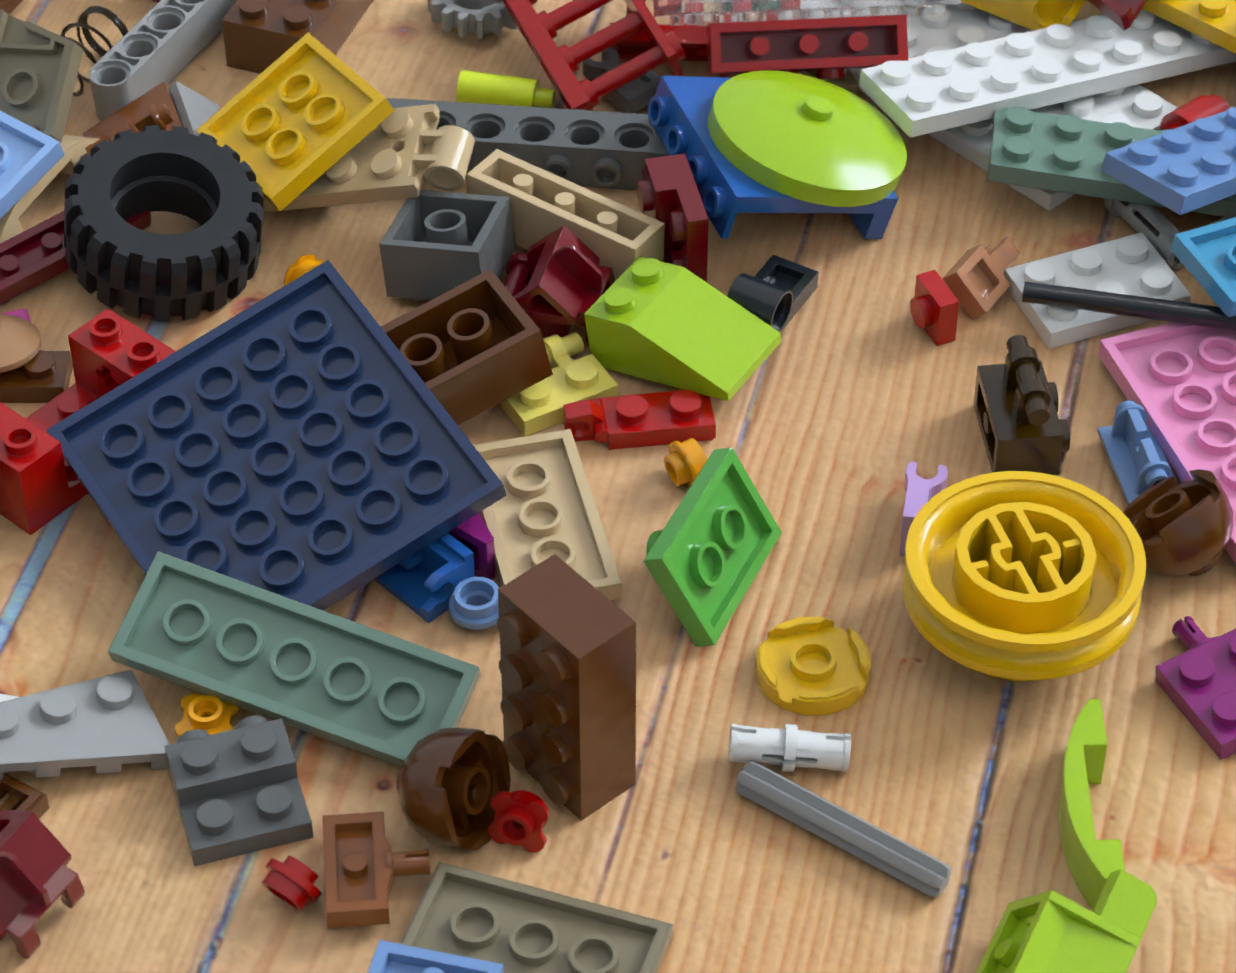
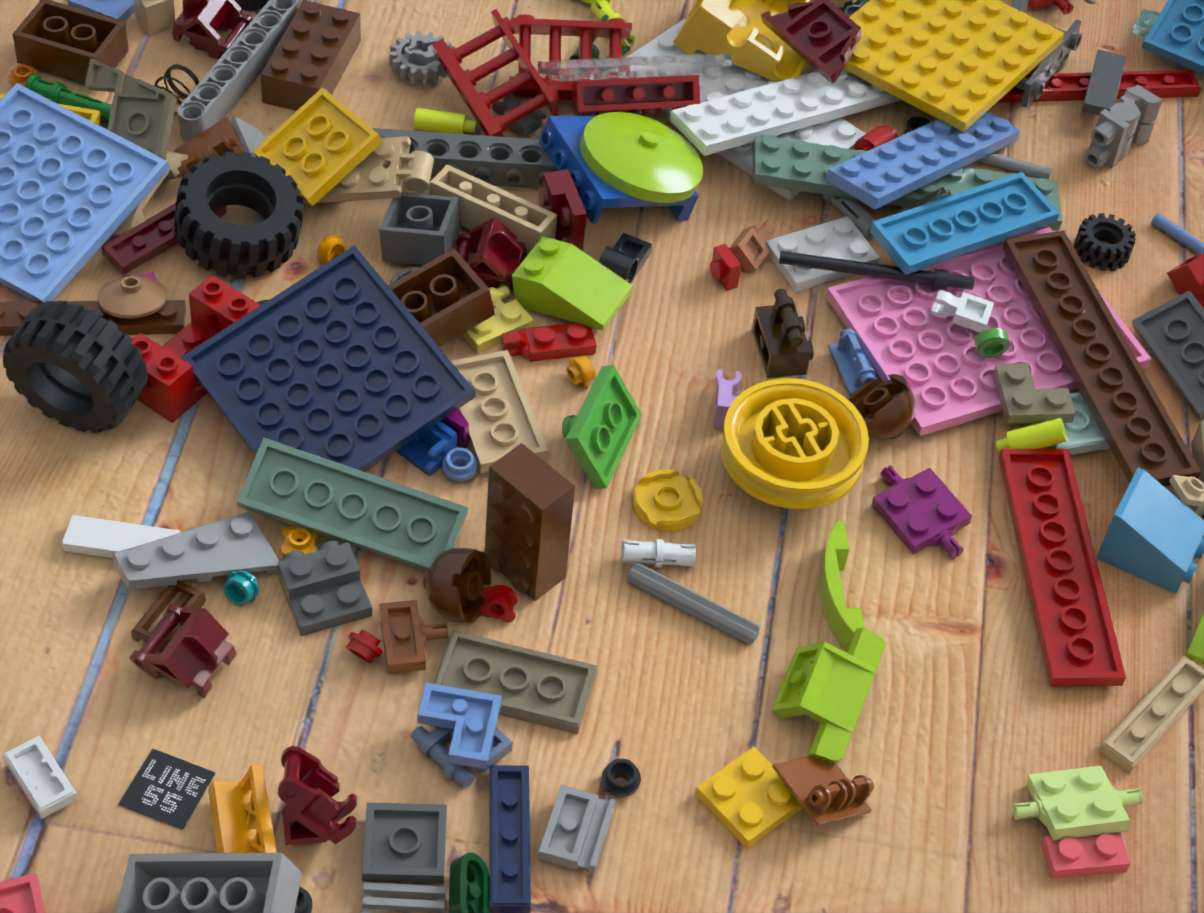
camera: 10 degrees left, 5 degrees up
(104, 786) = (241, 587): none -> teal plate

